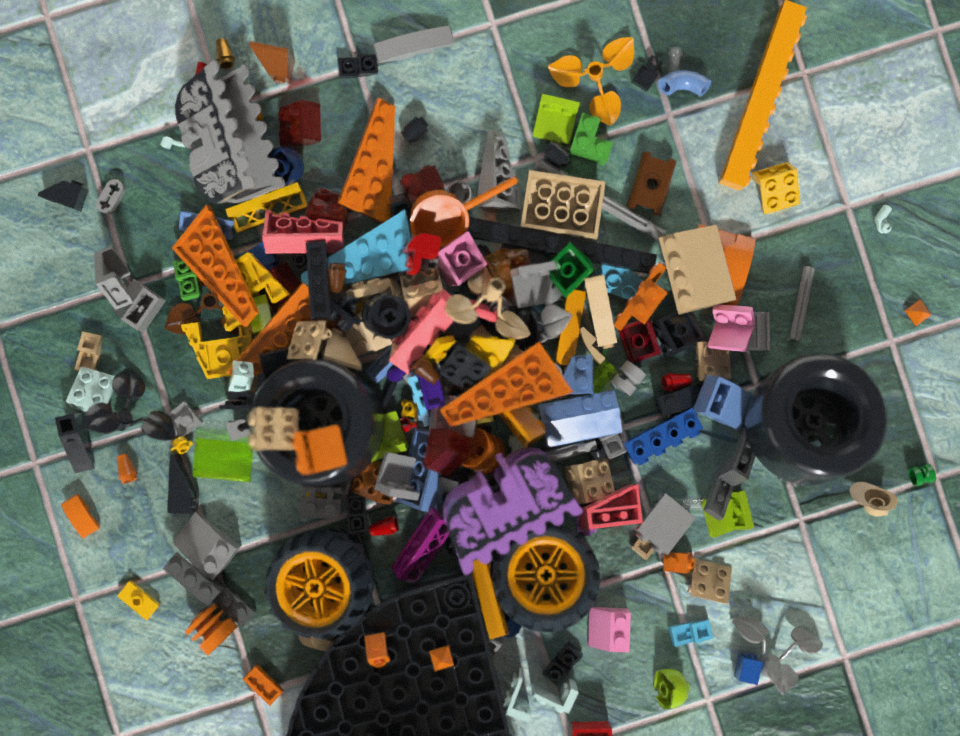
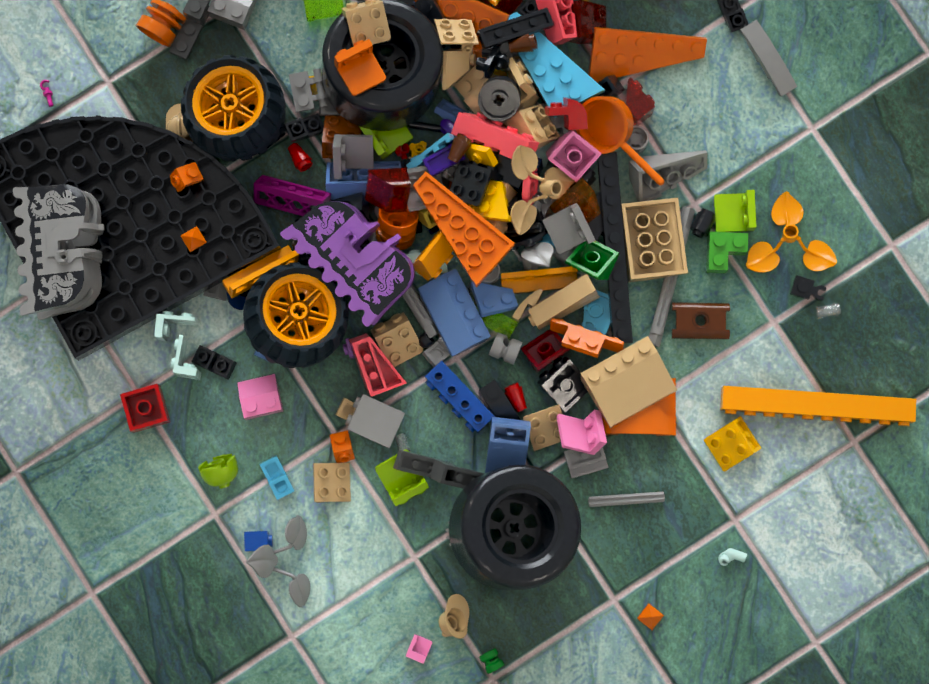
camera: 75 degrees right, 5 degrees down
(263, 684) = (119, 85): orange plate -> none
(414, 129) = (687, 81): black brick -> none
(684, 80) = (810, 325): medium blue cylinder -> none
(892, 541) = (419, 648): none -> bright pink panel

